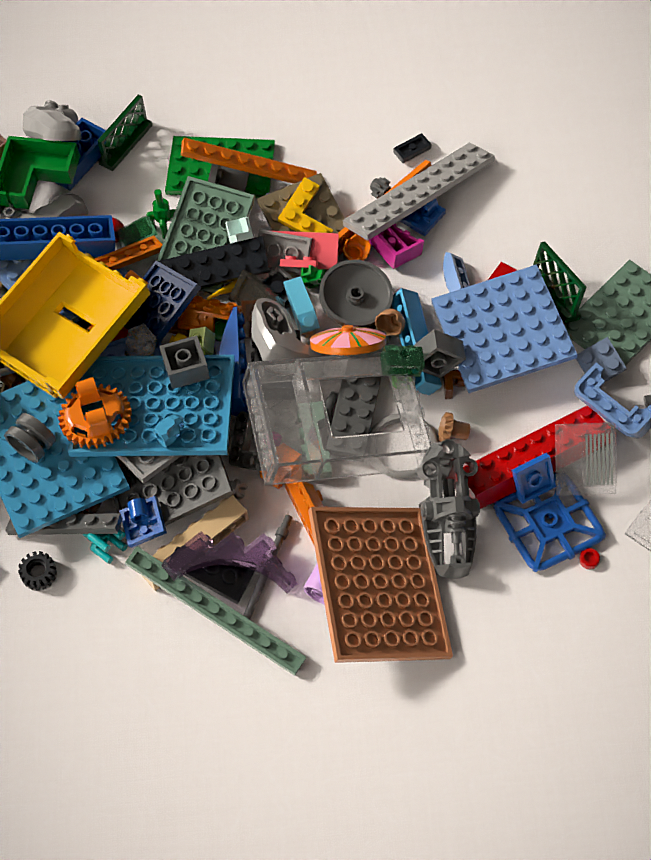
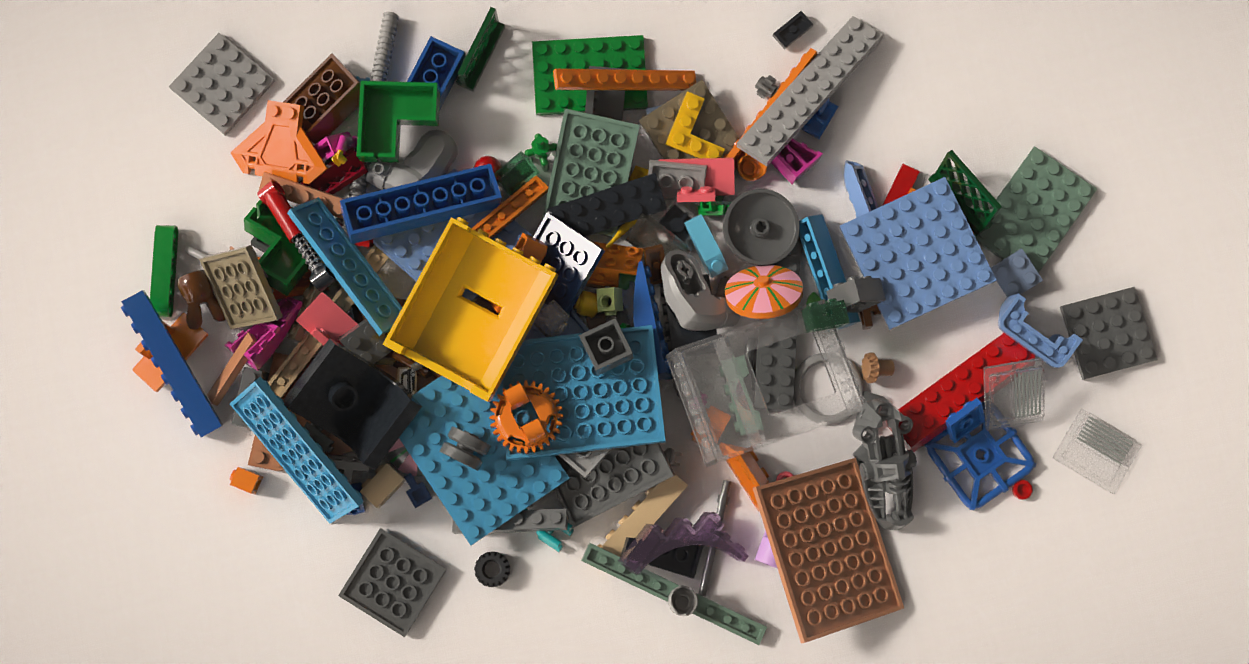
camera: 10 degrees left, 20 degrees up
(51, 123) = (400, 57): light grey piece -> none
(142, 521) = (588, 511): blue plate -> none
(169, 429) = (606, 427): dark azure rock -> none
(220, 611) = (683, 601): none -> light grey hair
(239, 229) = (630, 169): light aqua panel -> none
(243, 454) = (674, 422): dark grey beam -> none
(390, 321) = (802, 257): medium nougat hair -> none

